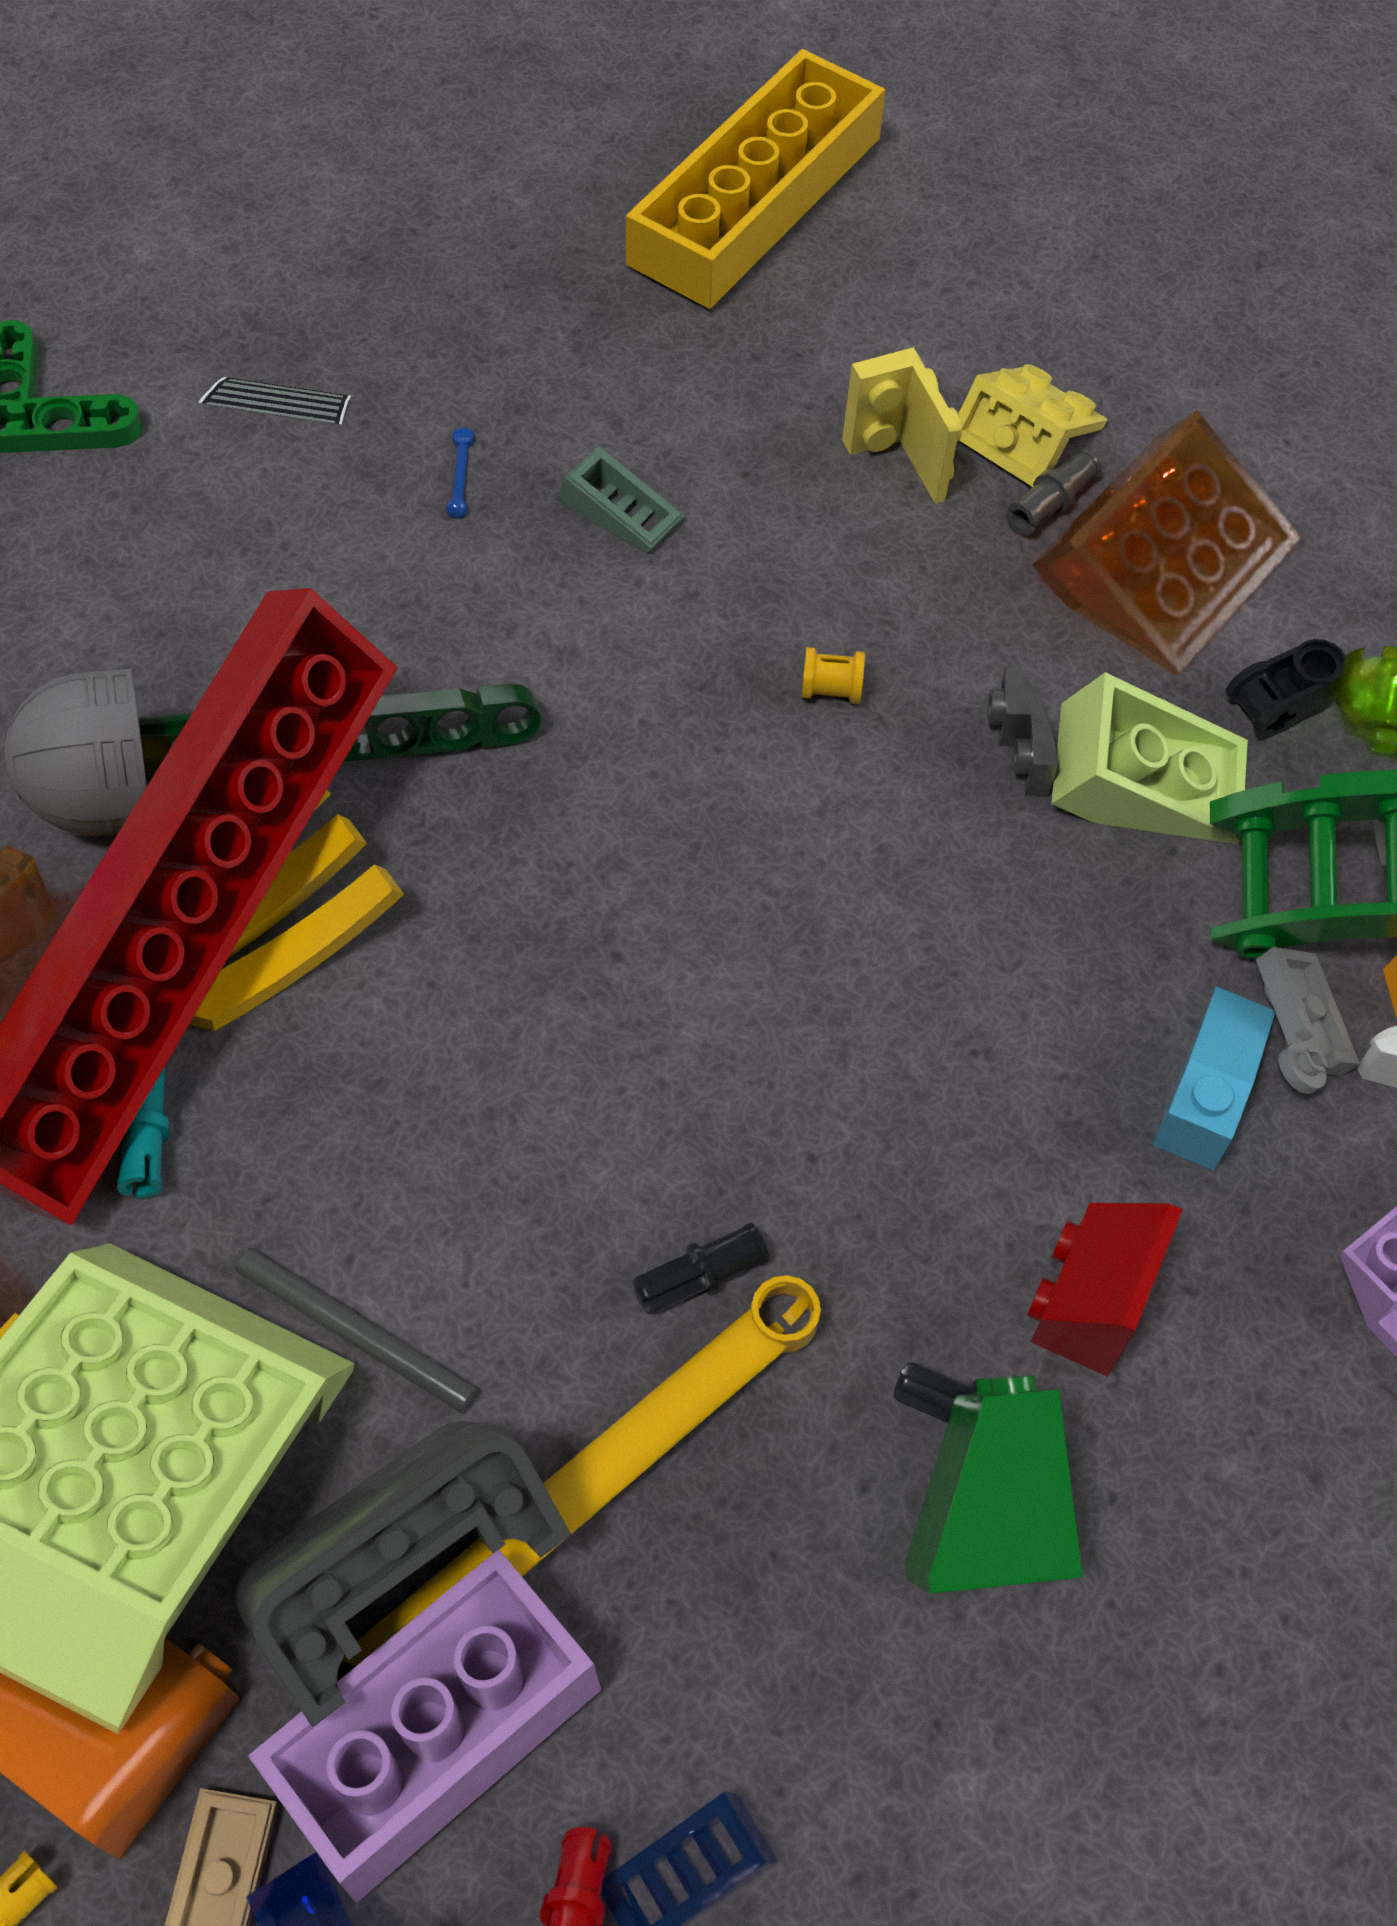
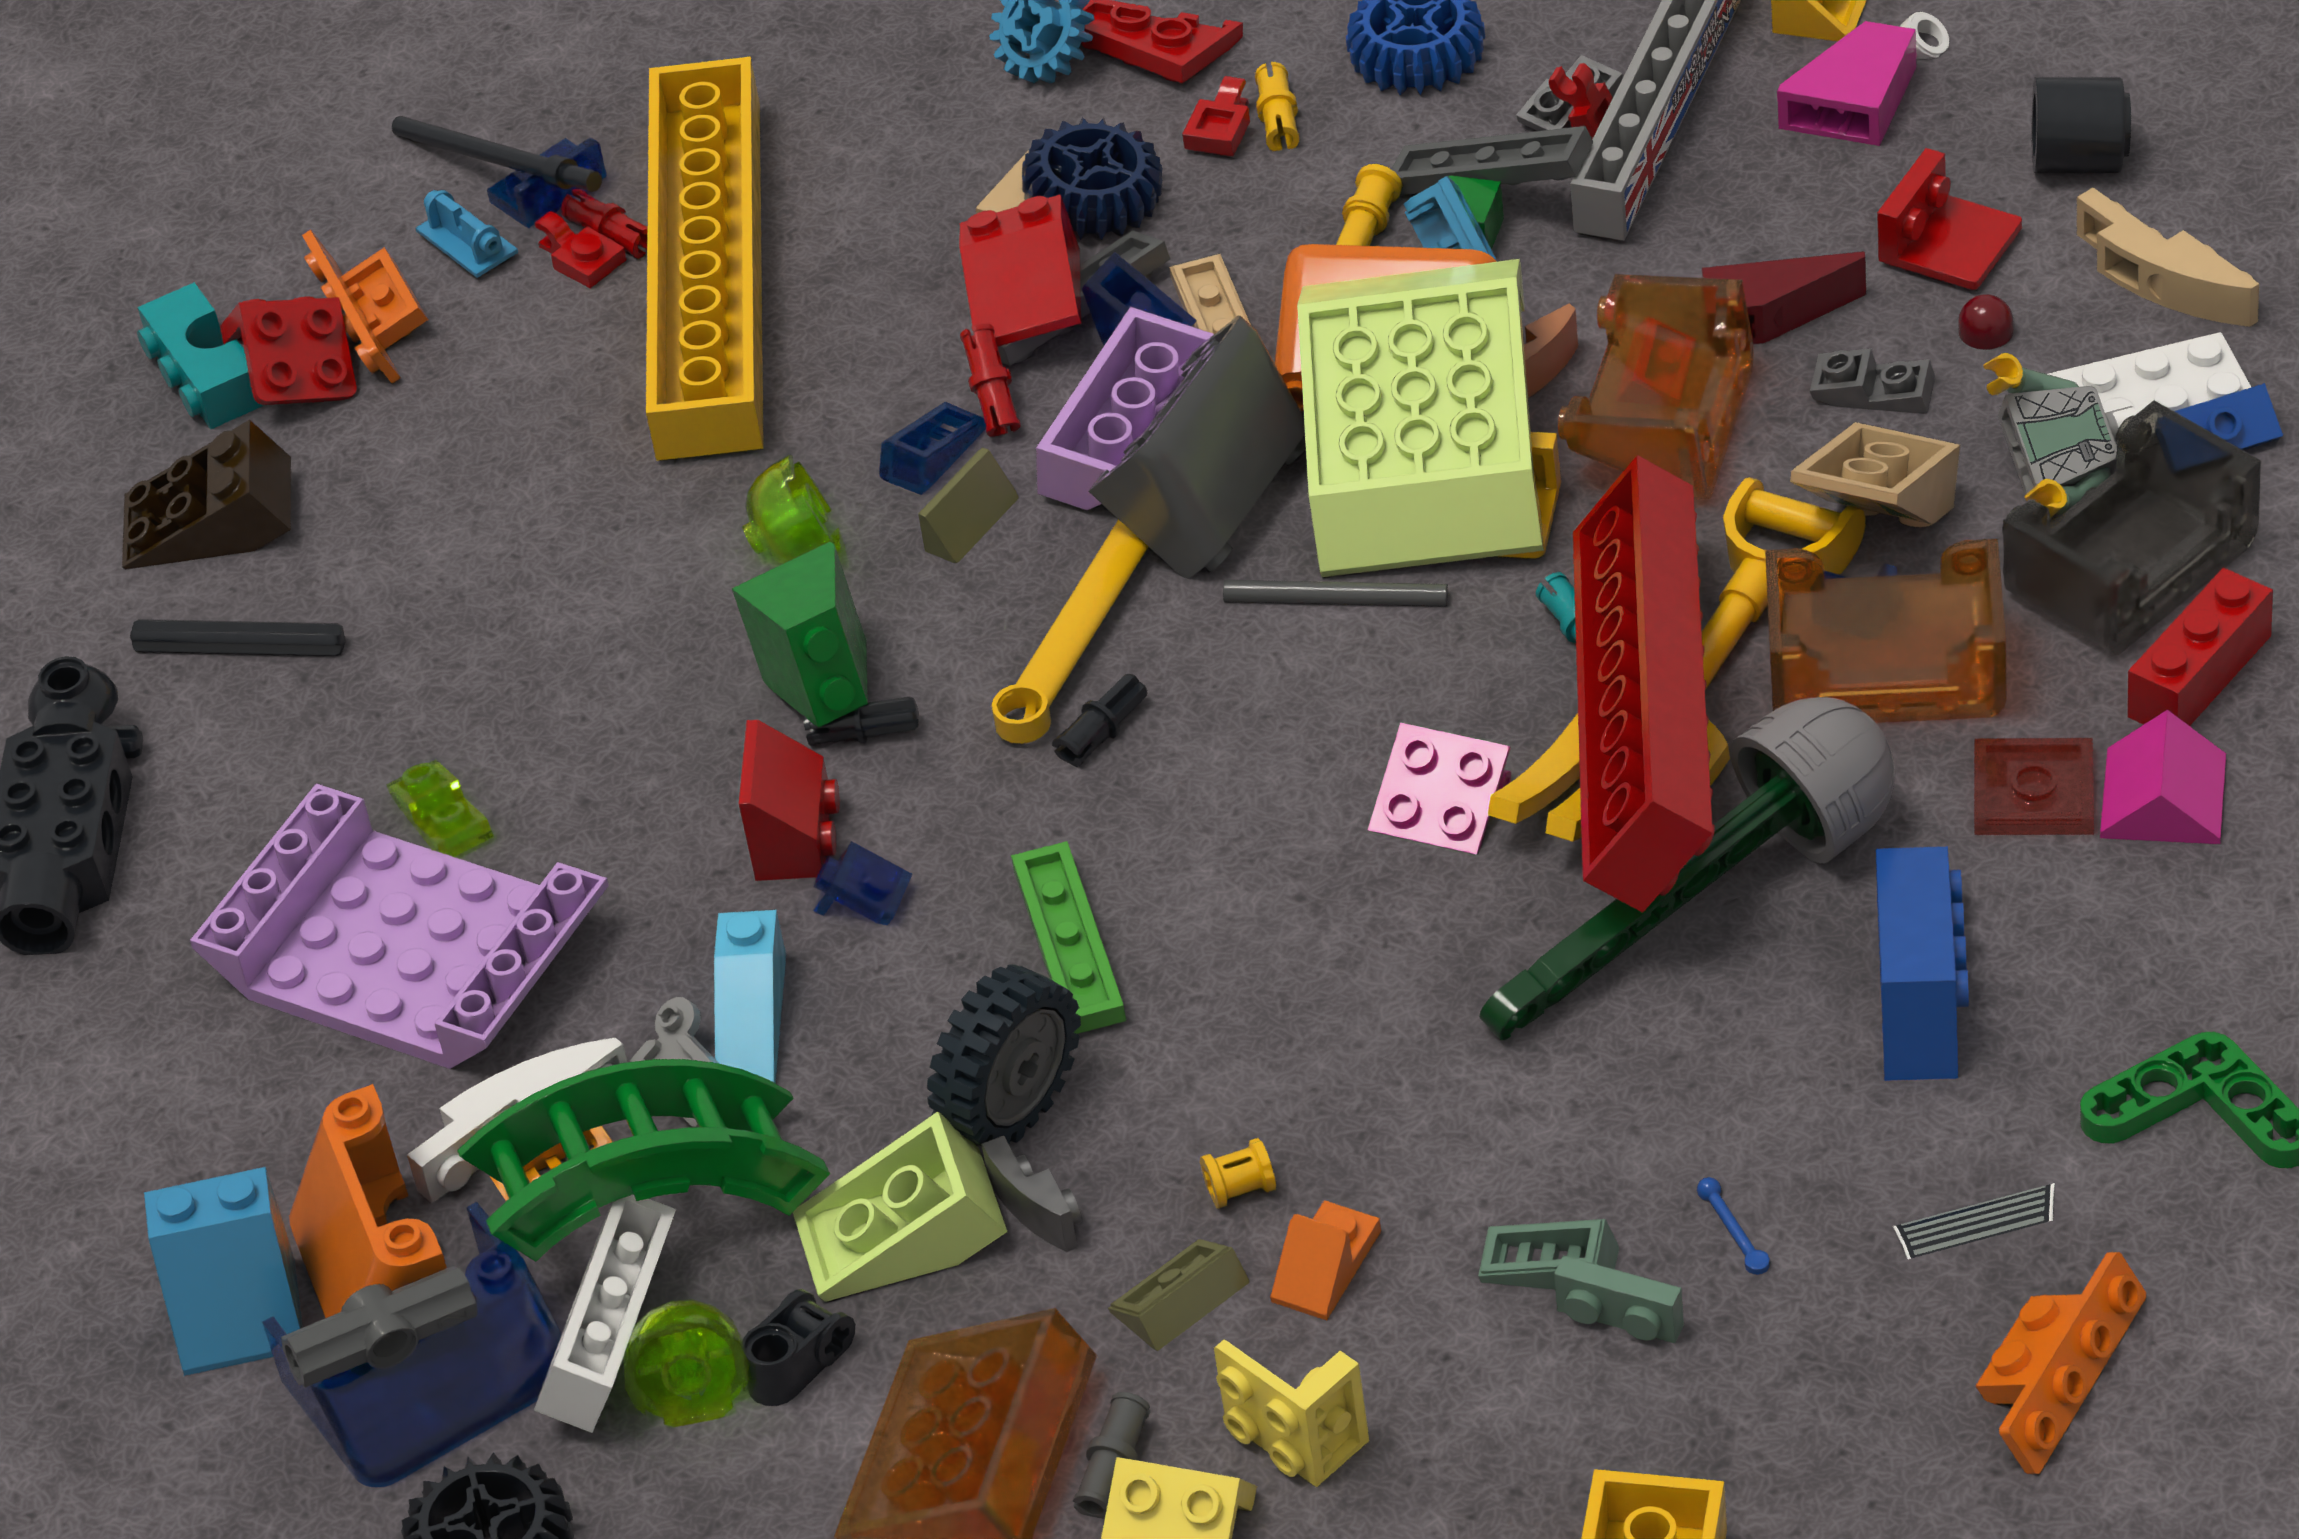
camera: 165 degrees right, 15 degrees down
(146, 575) = (1920, 961): none -> blue wedge
(315, 267) = (2057, 1357): none -> orange bracket
(416, 990) = (1439, 788): none -> hinge
(590, 424) = (1618, 1299): none -> sand green plate
(700, 1701) = (966, 507): none -> olive slope
(796, 582) = (1322, 1258): none -> orange slope
(866, 1001) = (1068, 933): none -> bright green plate
(933, 613) = (1180, 1292): none -> olive slope
(940, 1772) = (787, 513): none -> clear neon green cylinder
(1008, 805) = (1004, 1054): none -> black wheel
(1053, 1166) = (862, 884): none -> clear blue bracket

